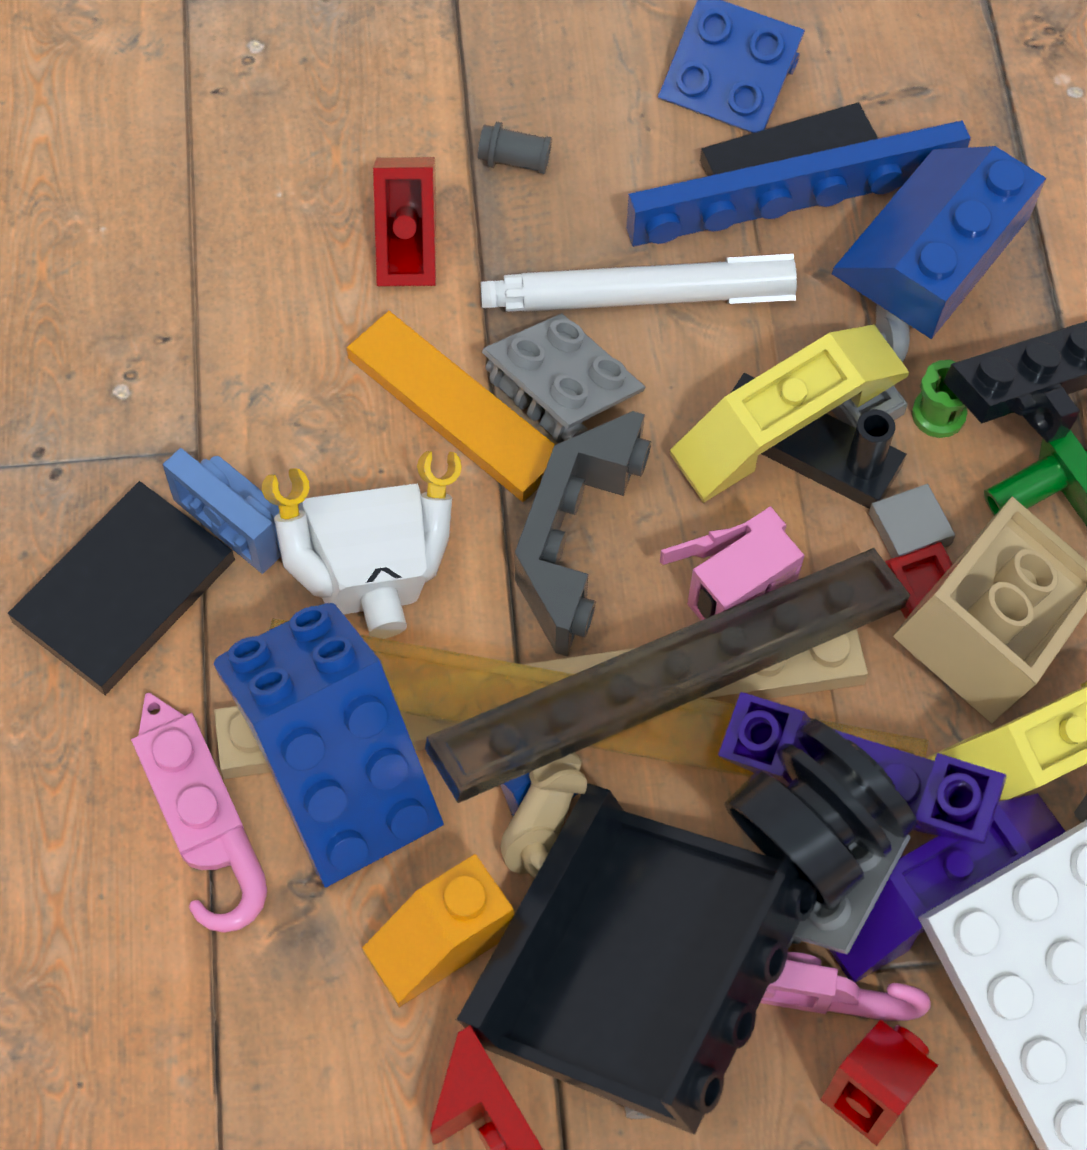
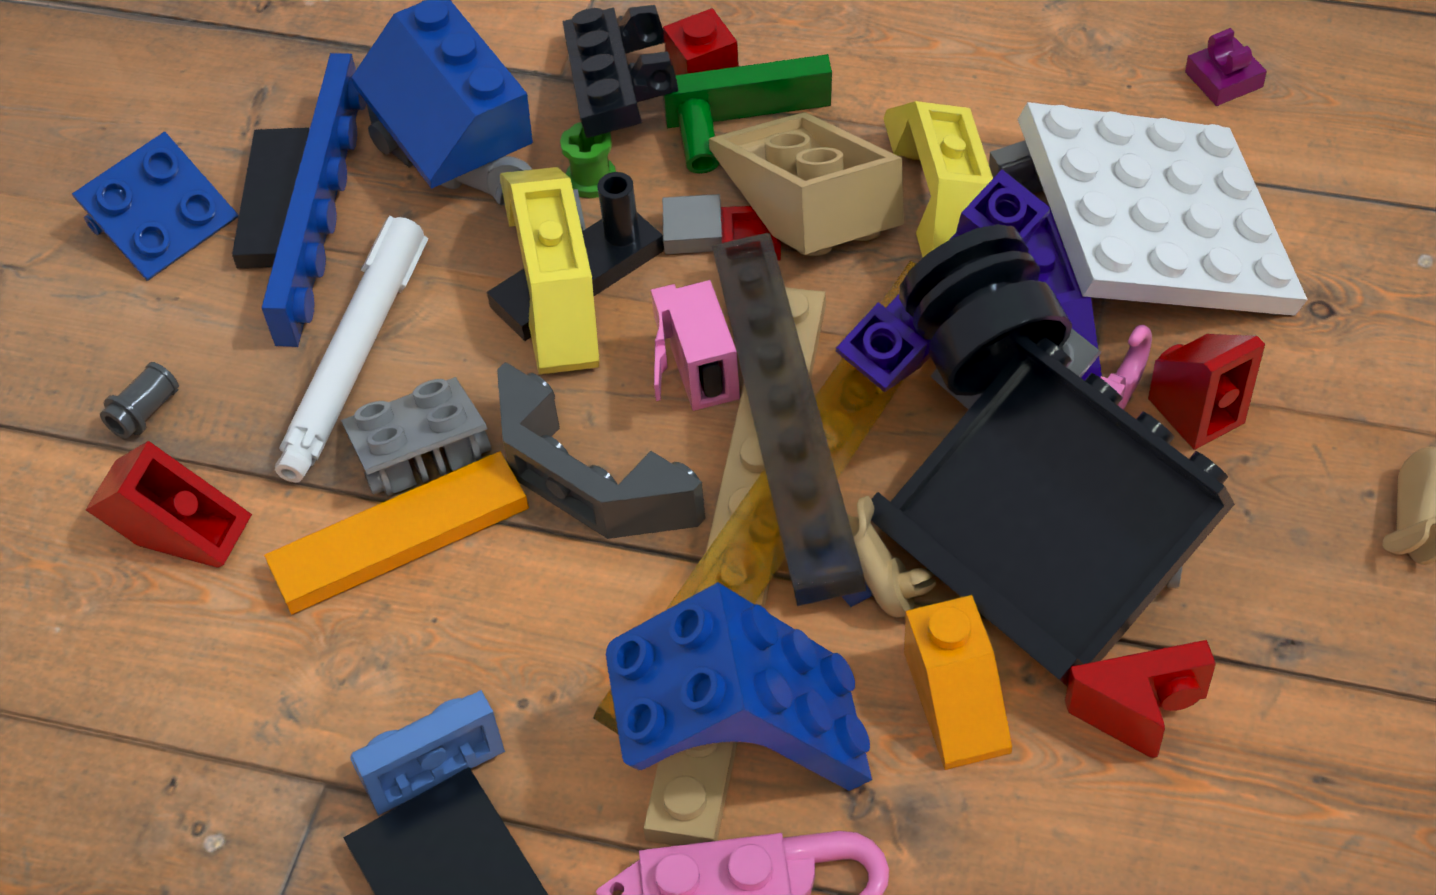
camera: 65 degrees left, 10 degrees down
(368, 545) = (529, 625): white torso -> none

